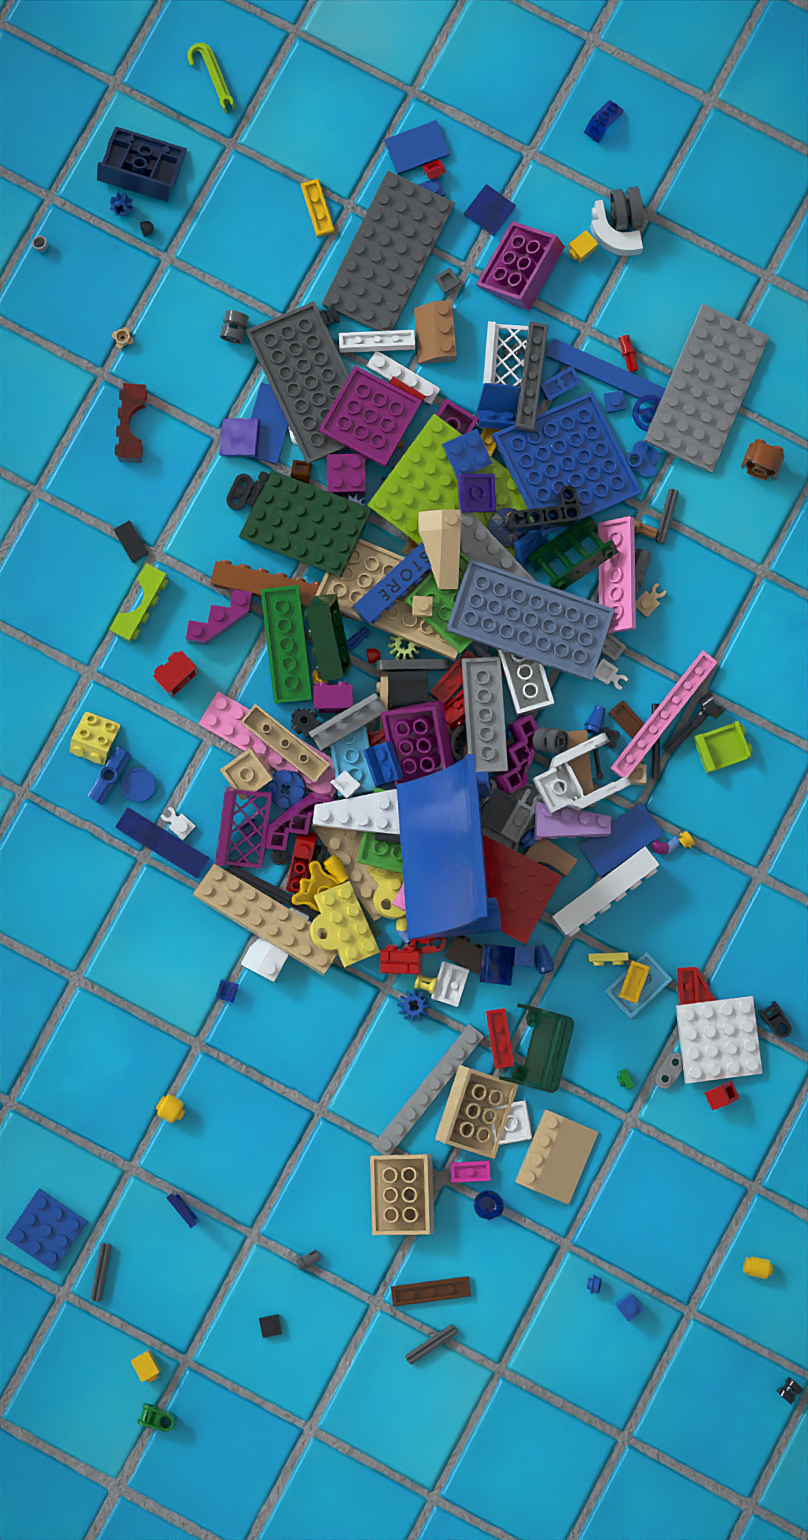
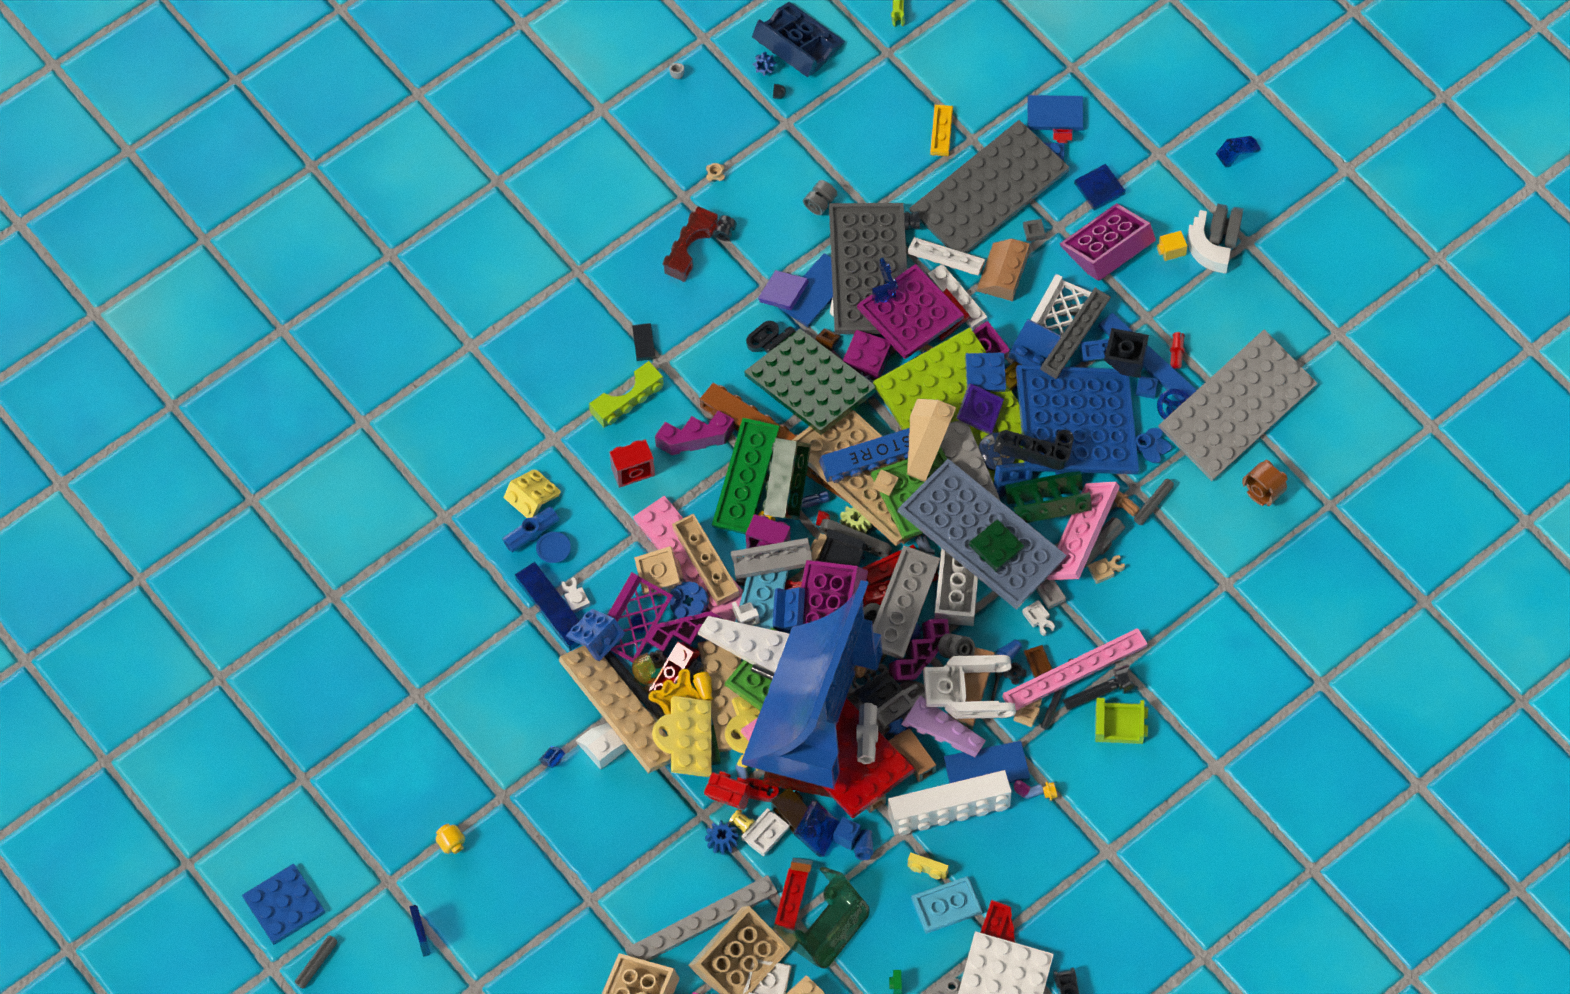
camera: 25 degrees right, 20 degrees down
(157, 394) = (725, 227): none -> black wheel
(216, 858) = (597, 633): none -> blue bracket
(274, 873) = (643, 669): none -> clear yellow hair
(304, 714) = (728, 544): black brick -> none
(340, 410) = (887, 291): none -> clear blue bracket
(495, 1002) = (801, 865): none -> dark orange tile
(507, 860) = (867, 733): none -> white piece
(549, 628) = (996, 545): none -> dark green plate
(587, 378) = (1127, 352): none -> black slope
(634, 981) = (943, 895): yellow plate -> none

